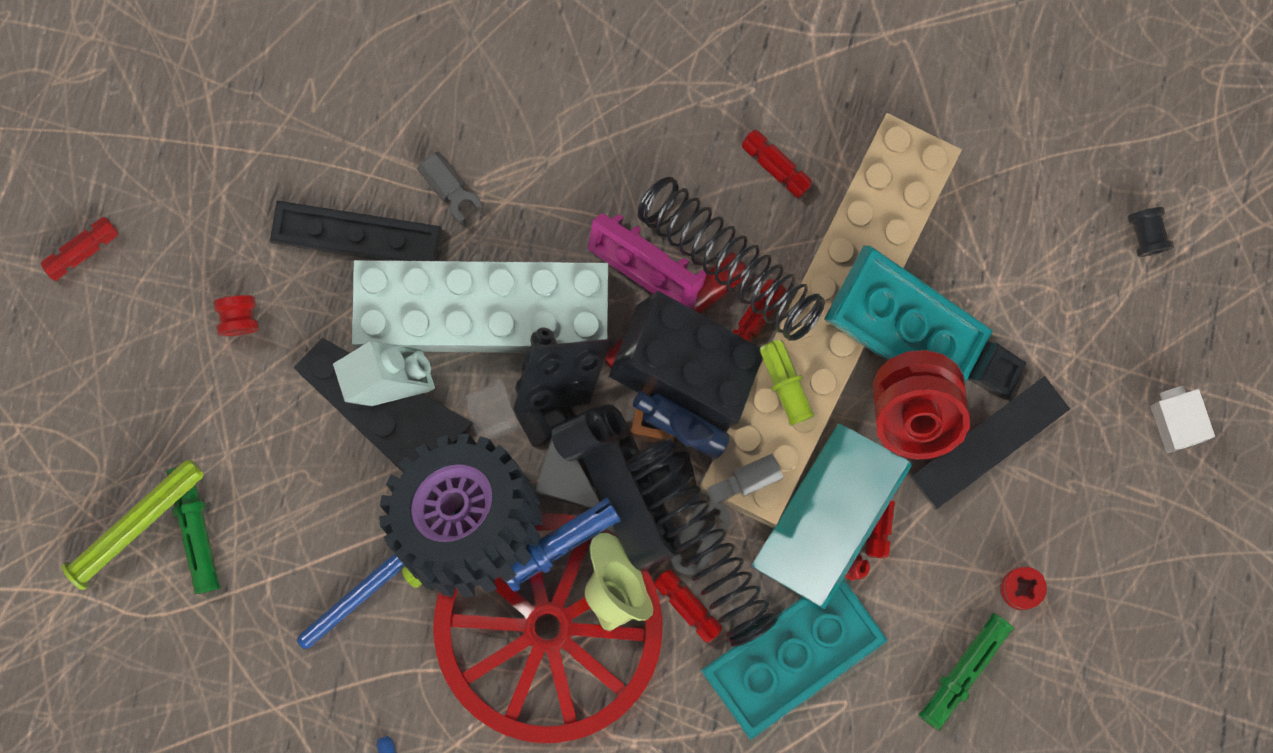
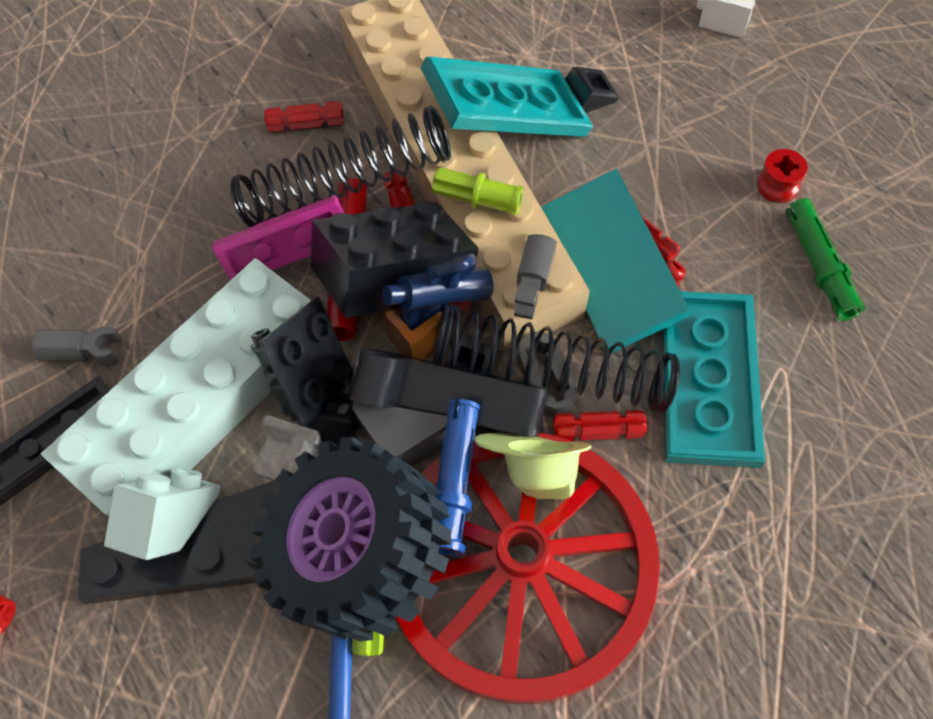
camera: 45 degrees left, 20 degrees down
(920, 405) = (579, 127): red wheel -> none
(990, 443) = (644, 129): black tile -> none

